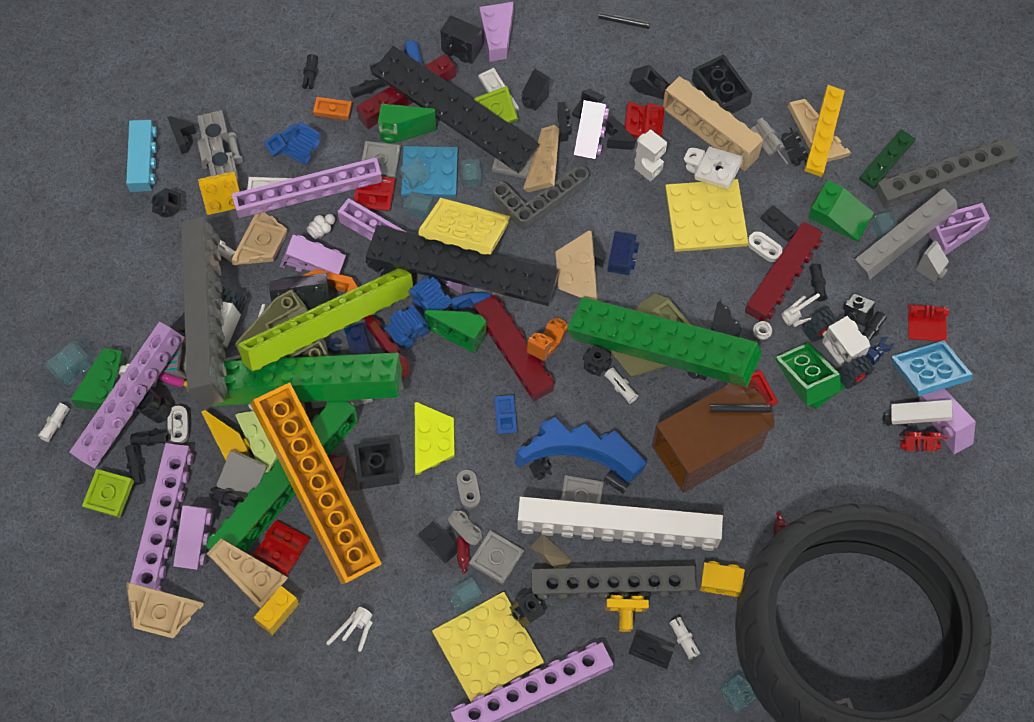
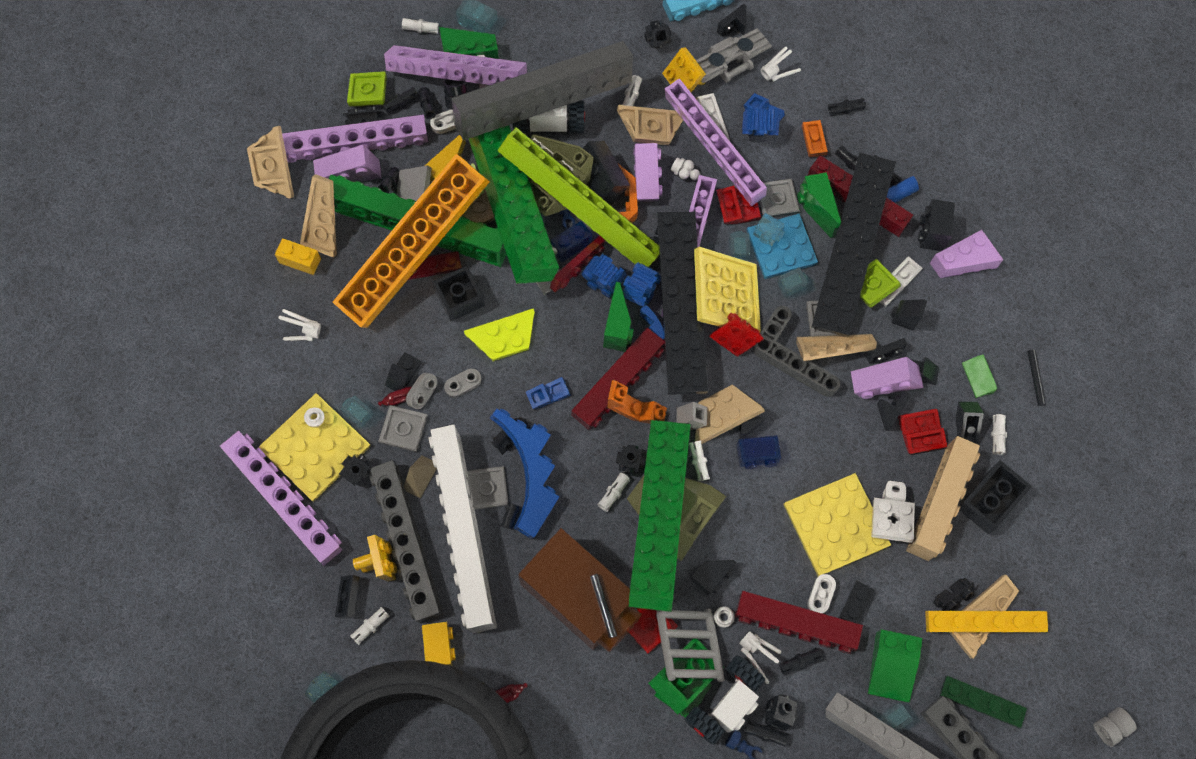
camera: 70 degrees right, 5 degrees up
(135, 514) = (356, 116): none -> black hinge
(245, 120) = (771, 69): none -> white plant
(281, 547) = (359, 242): red slope -> none
(461, 640) = (316, 422): none -> white plate
(510, 230) = (736, 335): none -> red hinge
(572, 295) = (692, 414): none -> light grey brick
(609, 60) = (979, 376): none -> bright green slope
(617, 302) = (699, 461): none -> white pin
(648, 155) = (875, 443): white arch -> none
(666, 65) = (999, 434): none -> white pin
(771, 141) = (953, 564): light grey piece -> none
(789, 376) = (669, 653): none -> light grey bar
(933, 72) = (1115, 726): none -> light grey wheel

